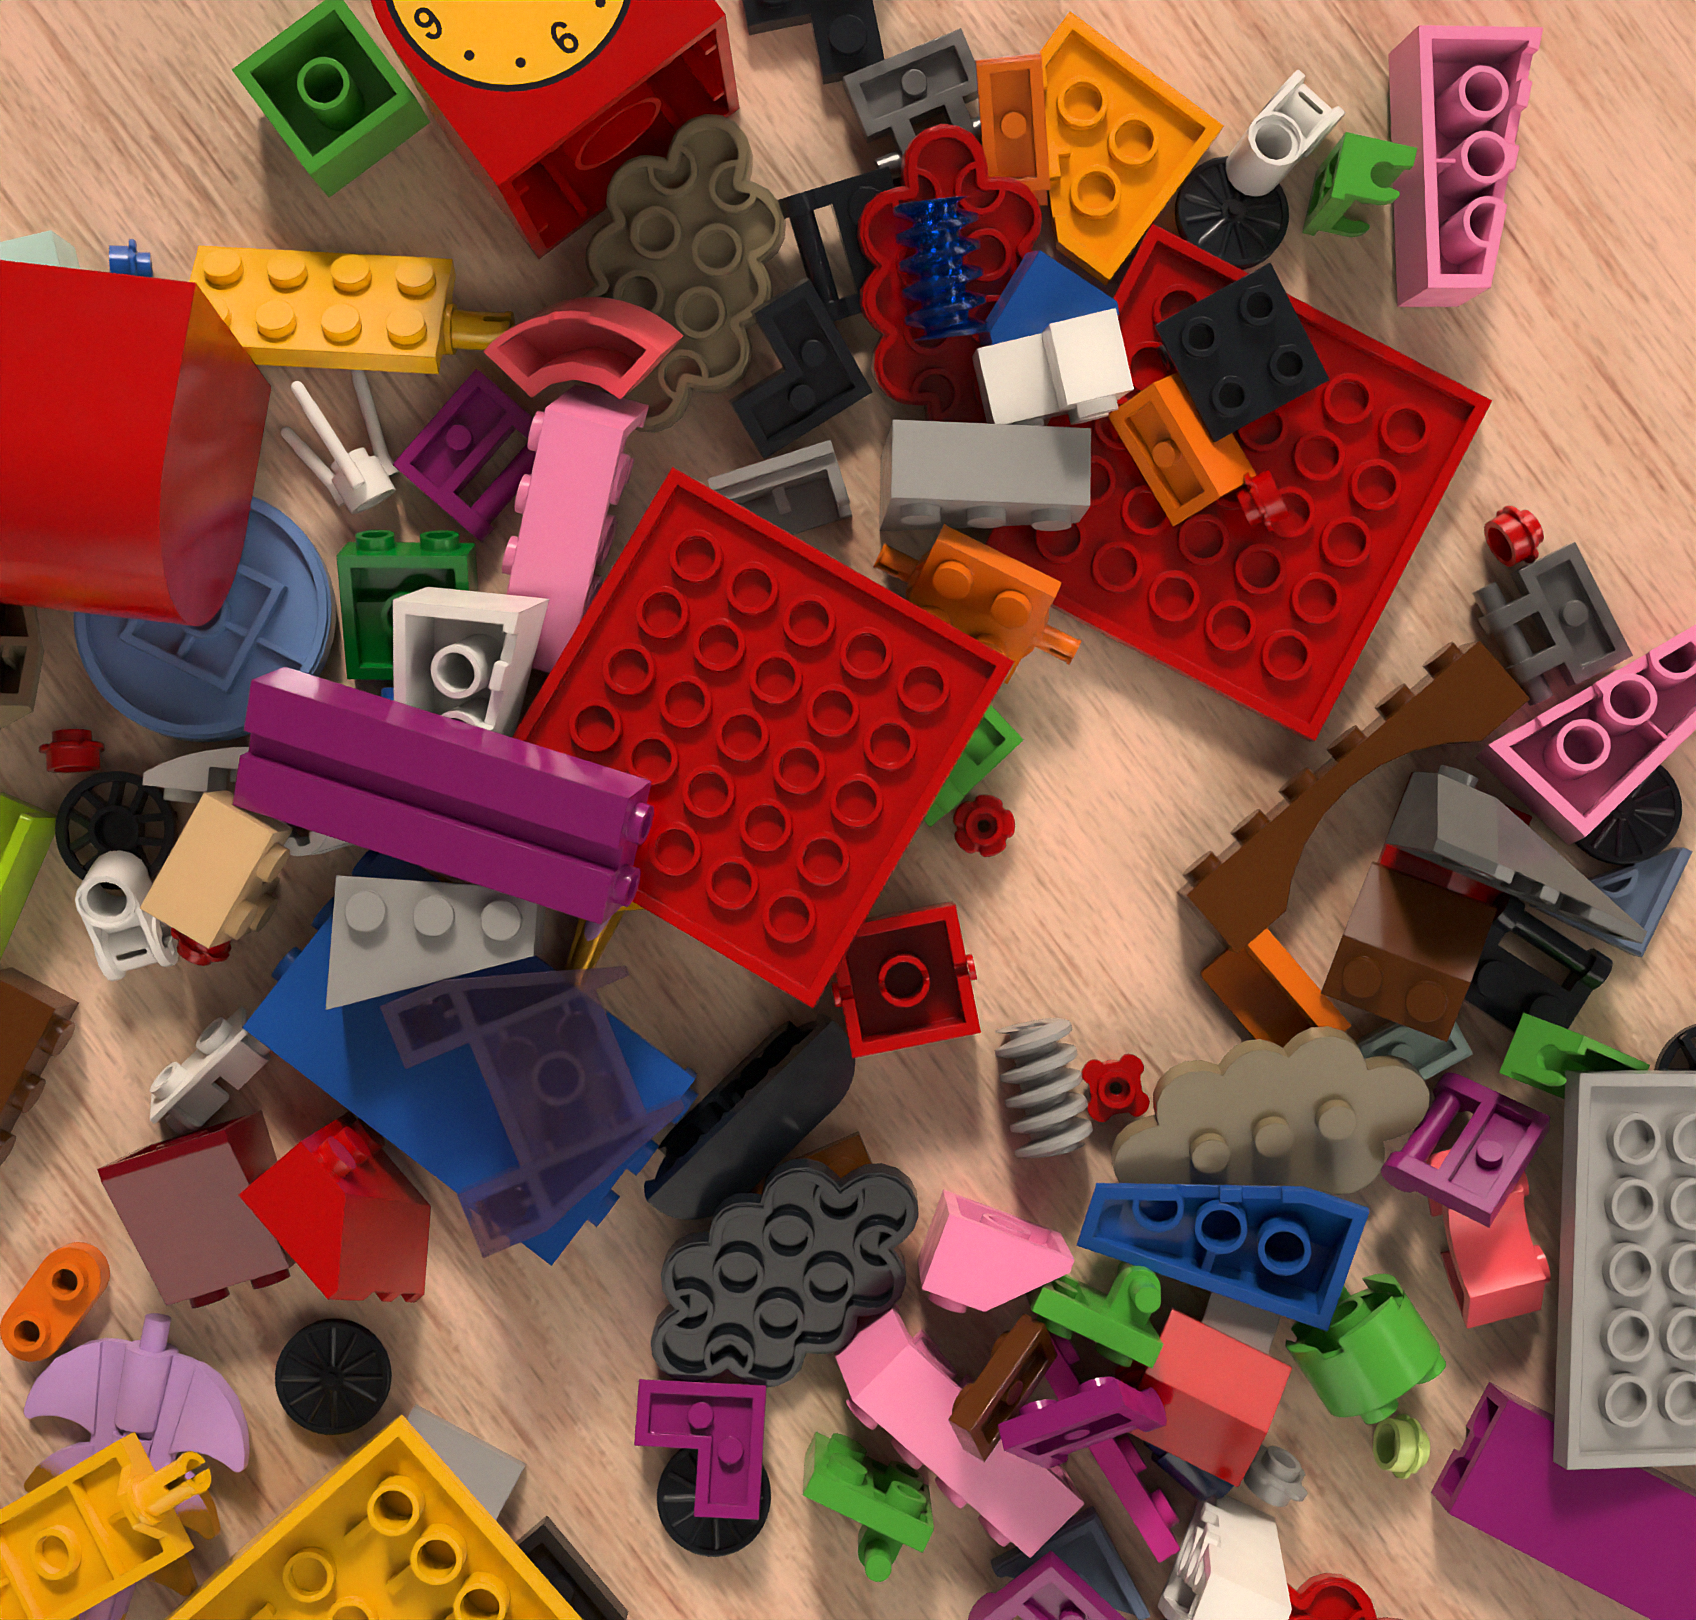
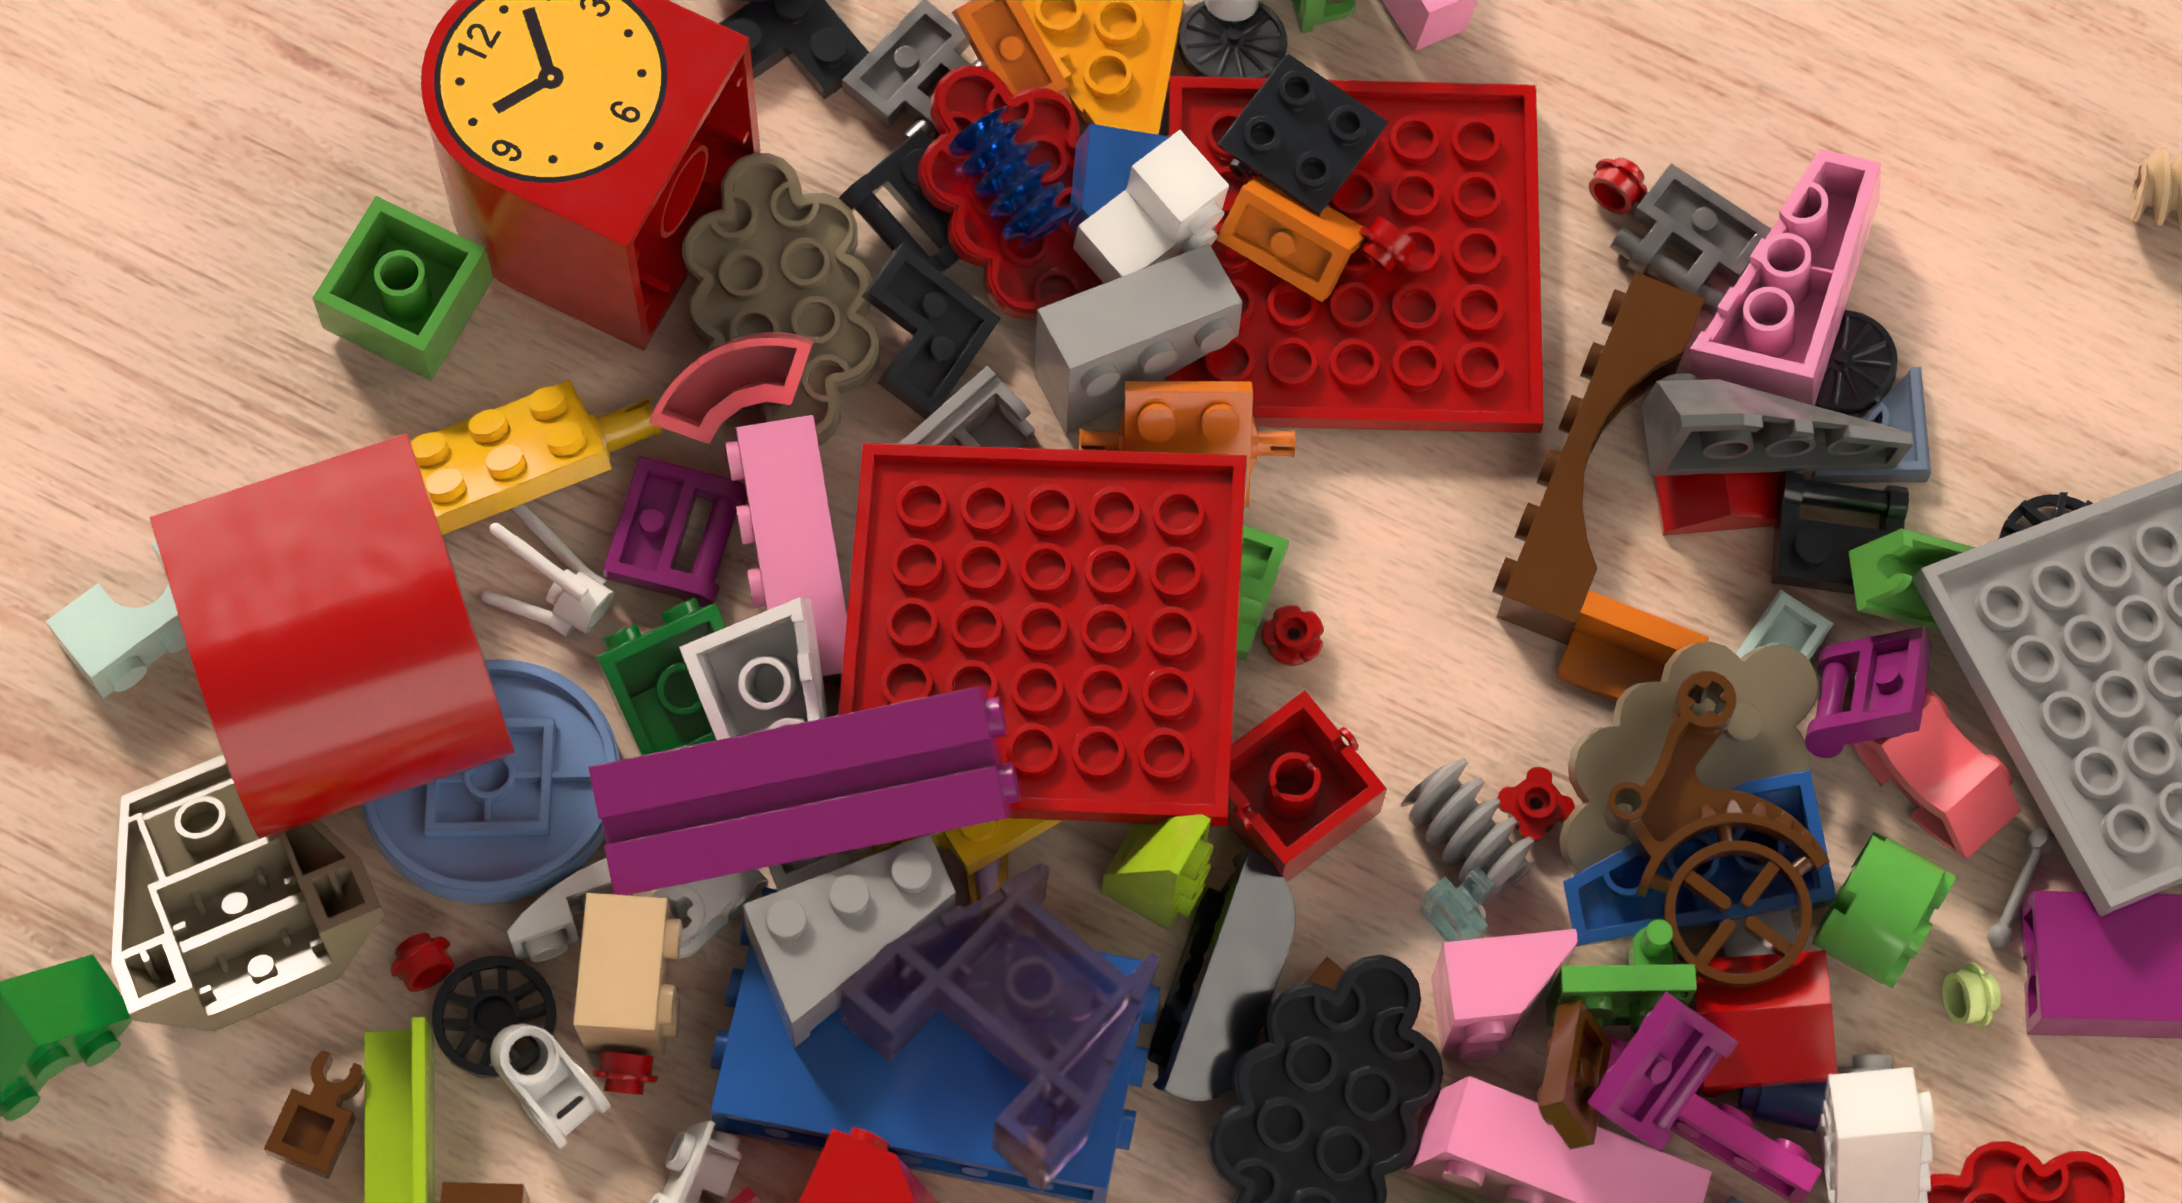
camera: 25 degrees left, 20 degrees down
(742, 1007) = (1161, 869): none -> lime slope
(992, 1159) = (1458, 911): none -> clear light blue plate
(1229, 1187) = (1678, 808): none -> reddish brown piece
(1409, 951) = (1722, 552): reddish brown slope -> none
(1541, 1337) = (2041, 842): none -> light grey hinge

